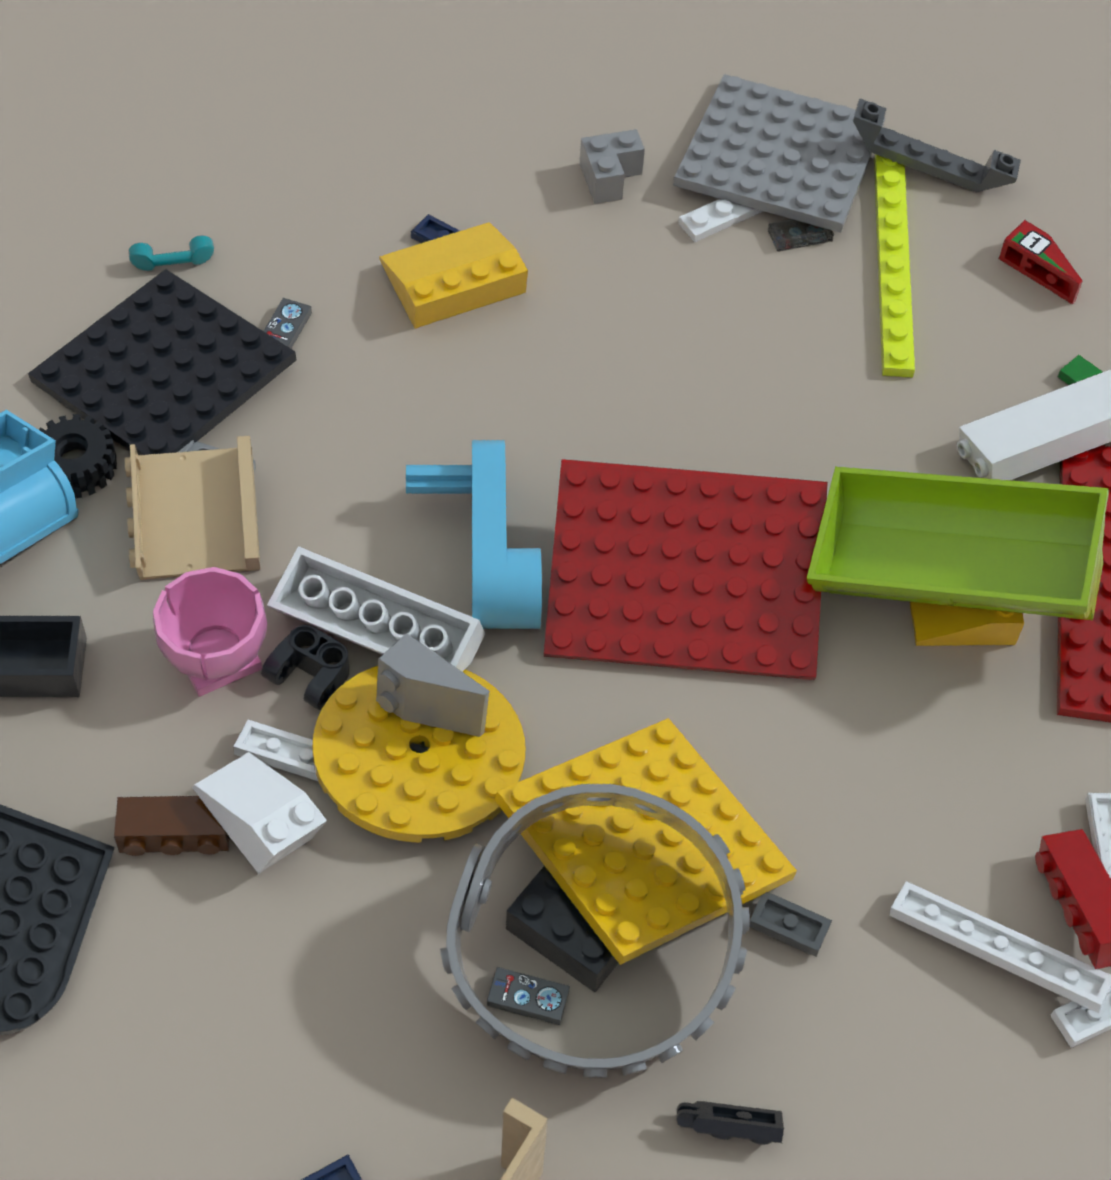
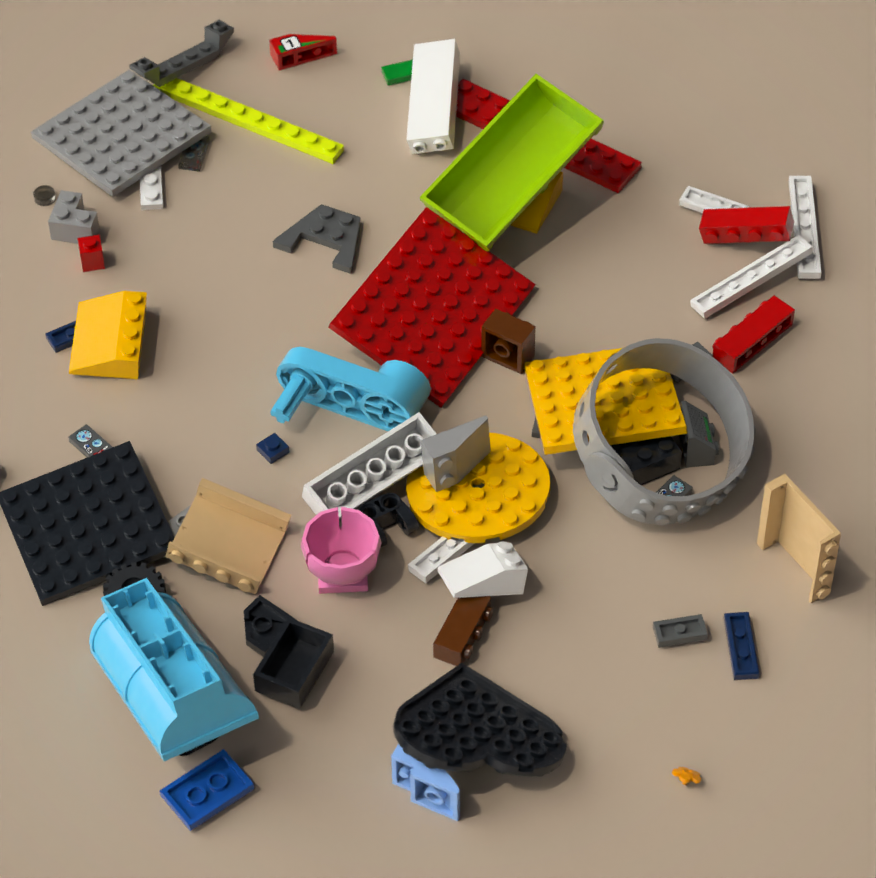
camera: 60 degrees left, 5 degrees down
(93, 599) = (262, 624): none -> black plate
(288, 1105) = (680, 630): none -> dark grey plate
(374, 501) = (272, 448): none -> dark blue plate
(569, 201) = (91, 253): none -> red brick
(643, 125) = (44, 195): none -> clear smoke tile
(647, 985) = (698, 443): none -> dark grey slope
(683, 679) = (508, 341): none -> reddish brown brick
(730, 1121) = (792, 433): black hinge -> none
(767, 413) = (328, 228): none -> dark grey wing
(895, 991) = (753, 333): none -> red brick

